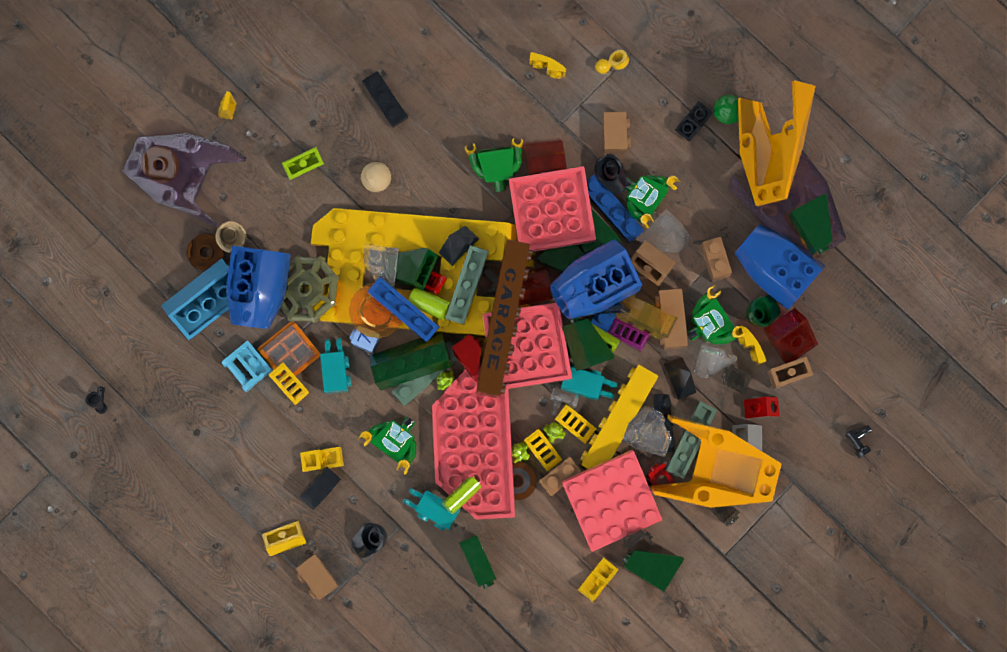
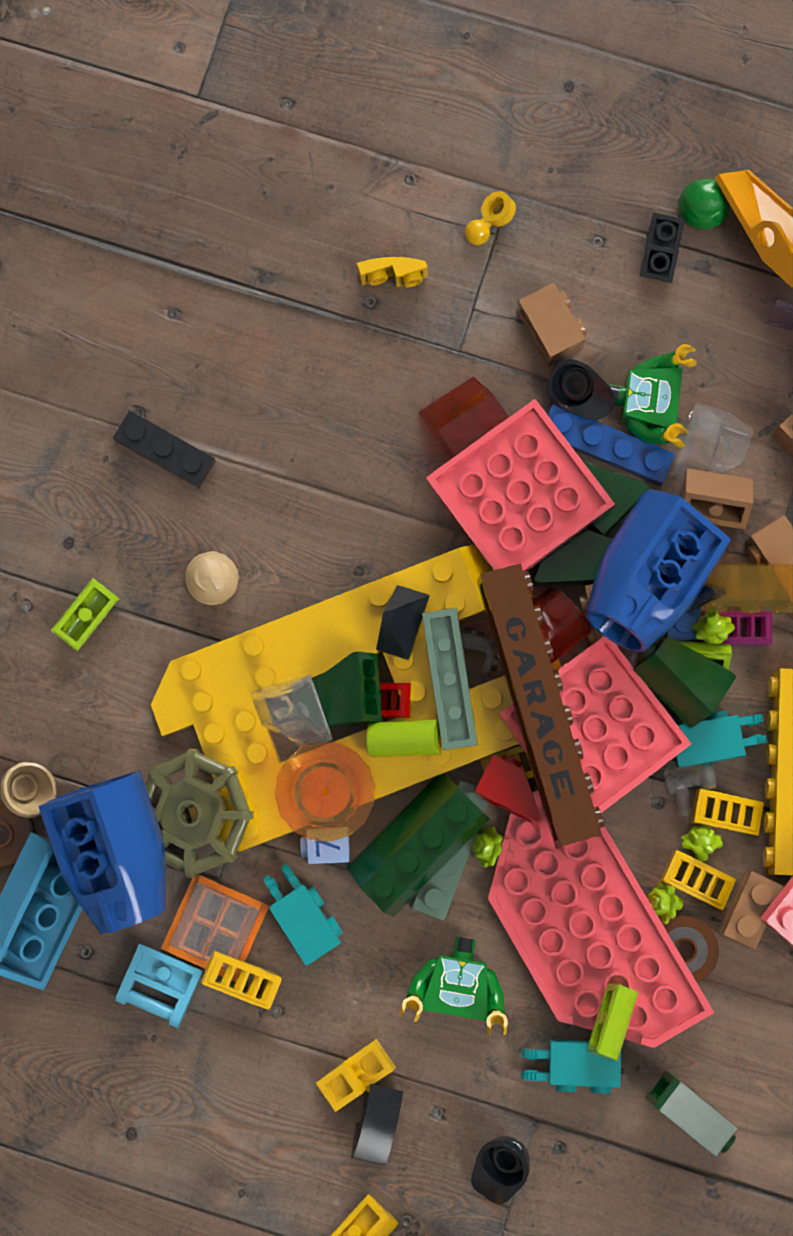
camera: 25 degrees left, 0 degrees up
(403, 309) = (367, 769): blue plate -> none
(496, 163) = (392, 463): green torso -> none
(615, 327) = (713, 627): none -> lime plant

